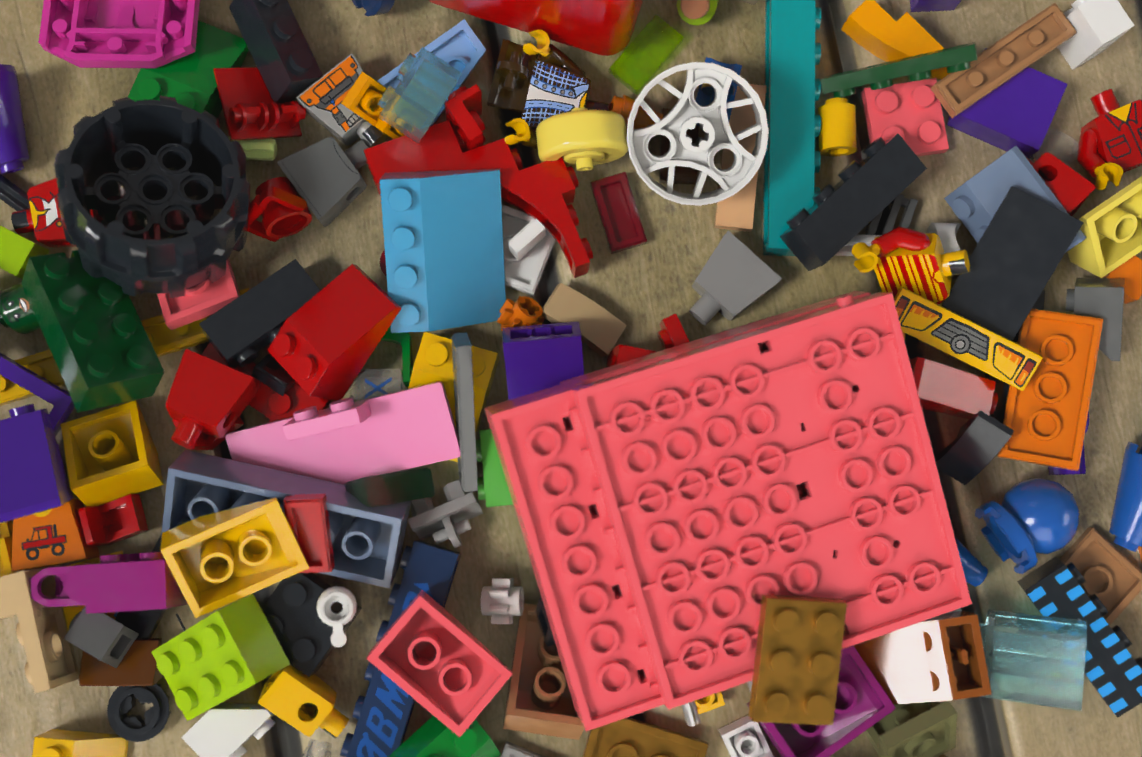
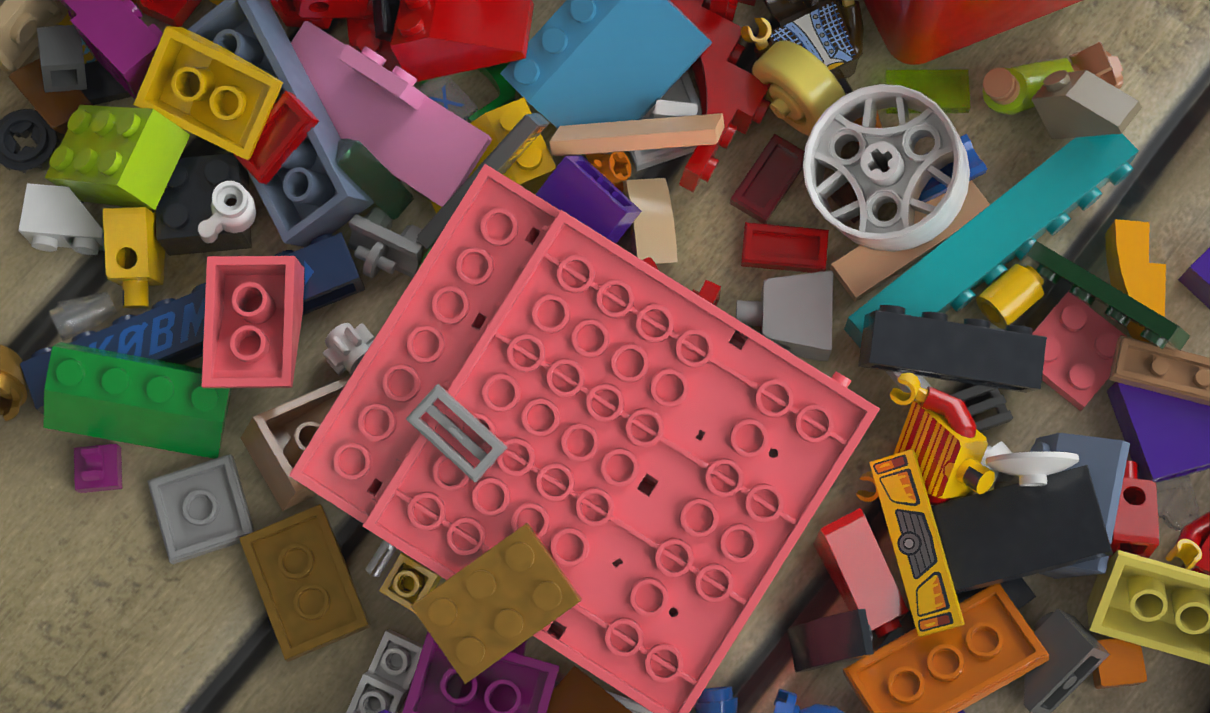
camera: 60 degrees right, 10 degrees down
(523, 278) = (637, 135): none -> light nougat tile
(661, 578) = (427, 405): none -> light grey tile
(675, 245) = (784, 248): none -> red tile
(983, 220) = (1032, 466): none -> white dish

